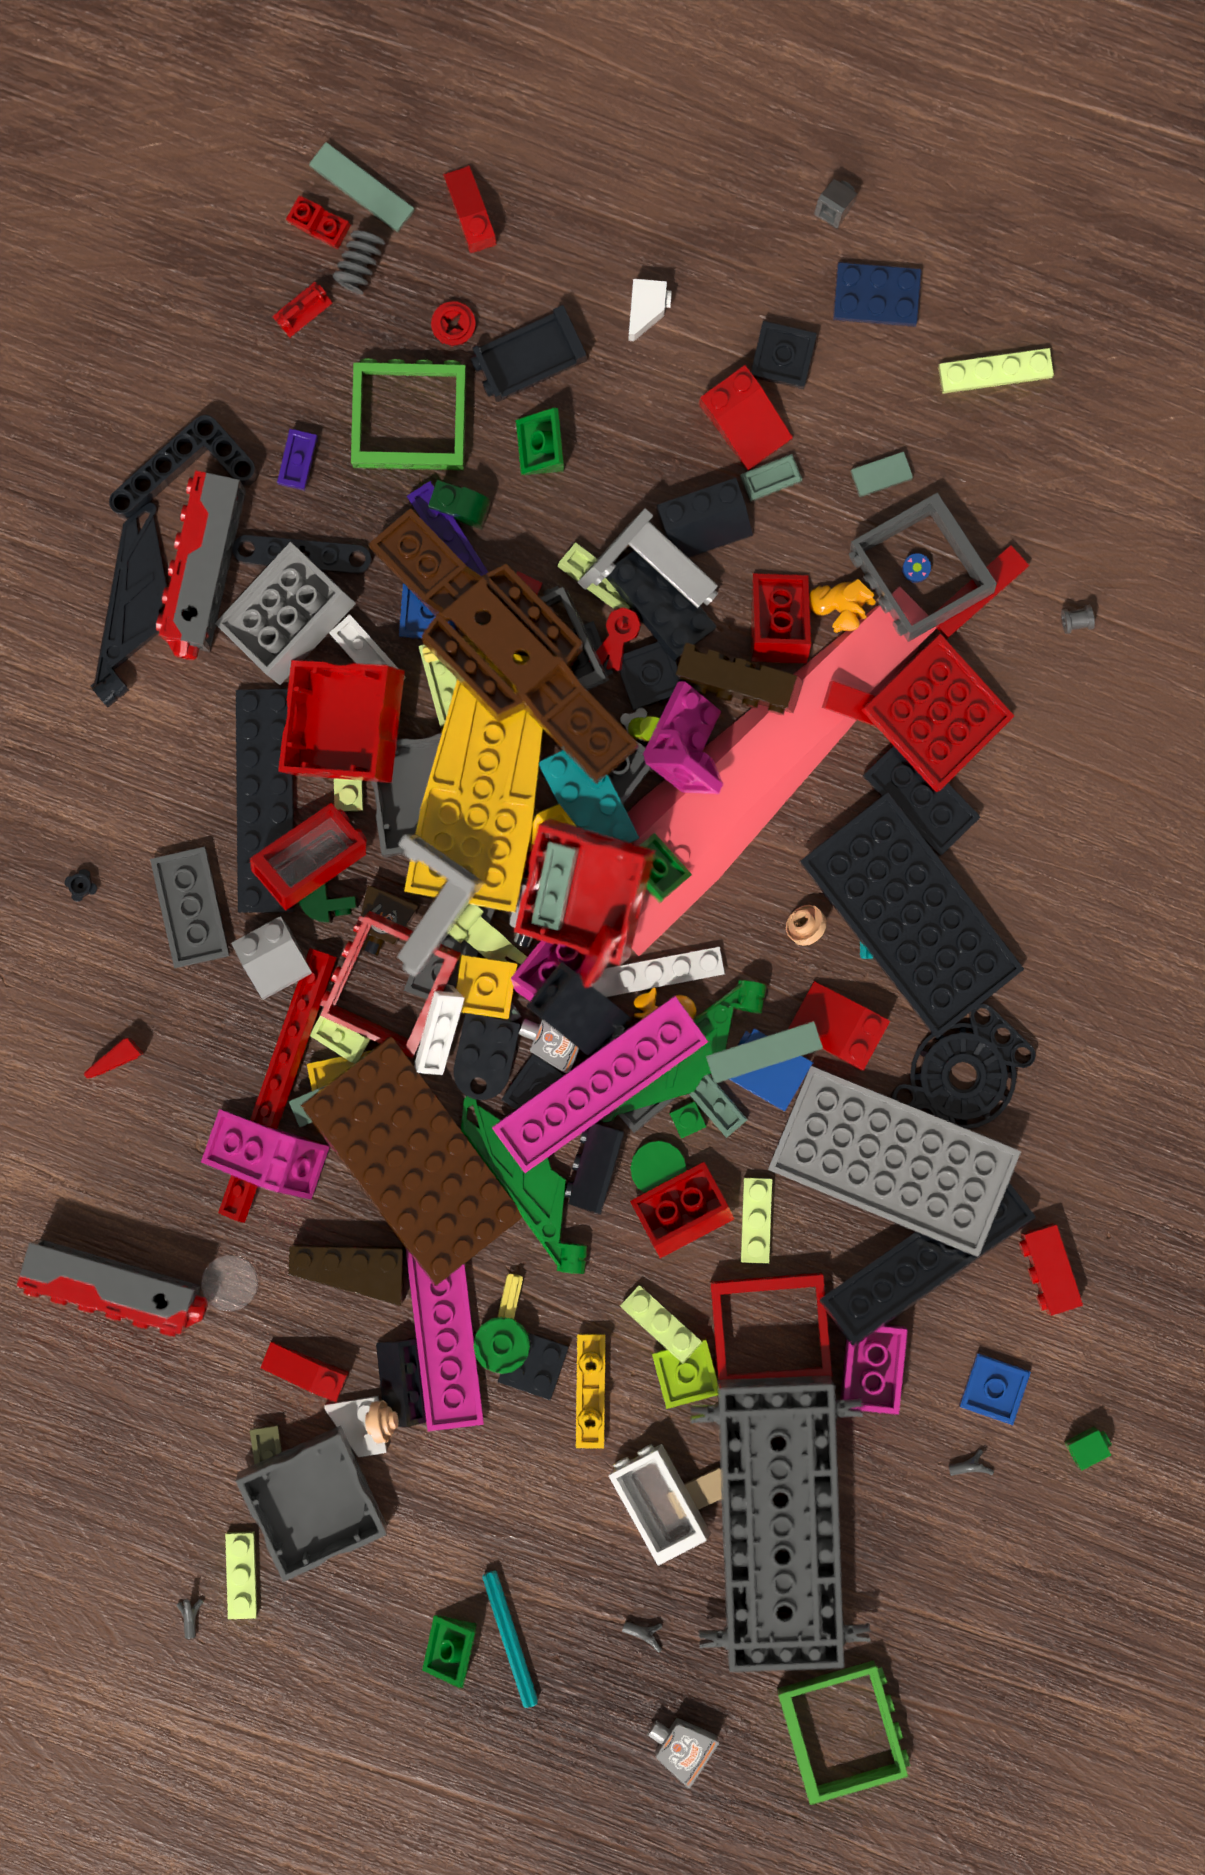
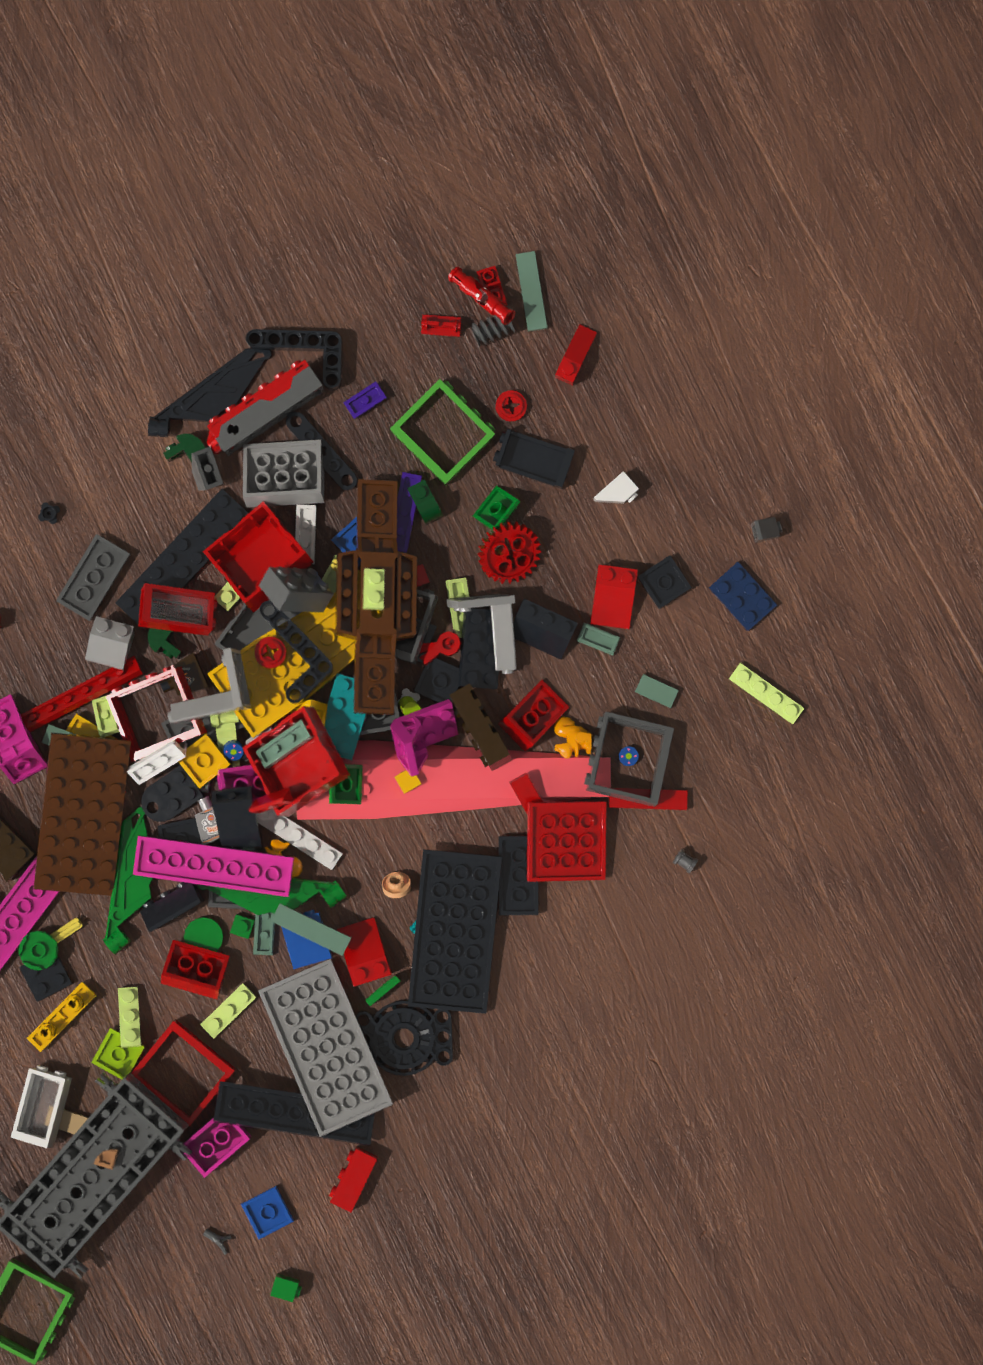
camera: 50 degrees right, 0 degrees up
(161, 675) = (187, 444): none -> dark green brick
(200, 684) = (205, 469): none -> dark grey slope
(297, 237) = (480, 294): none -> red piece
(414, 712) = (296, 589): none -> dark grey brick
(442, 794) = (261, 650): none -> red gear
(477, 773) = (300, 648): none -> black beam
(494, 636) = (373, 589): none -> yellowish green plate
(506, 946) = (233, 750): none -> blue tile
(606, 451) = (526, 546): none -> red gear
(716, 805) = (407, 782): none -> yellow tile
(781, 1490) = (107, 1158): none -> medium nougat tile
(895, 1046) = (383, 990): none -> green tile

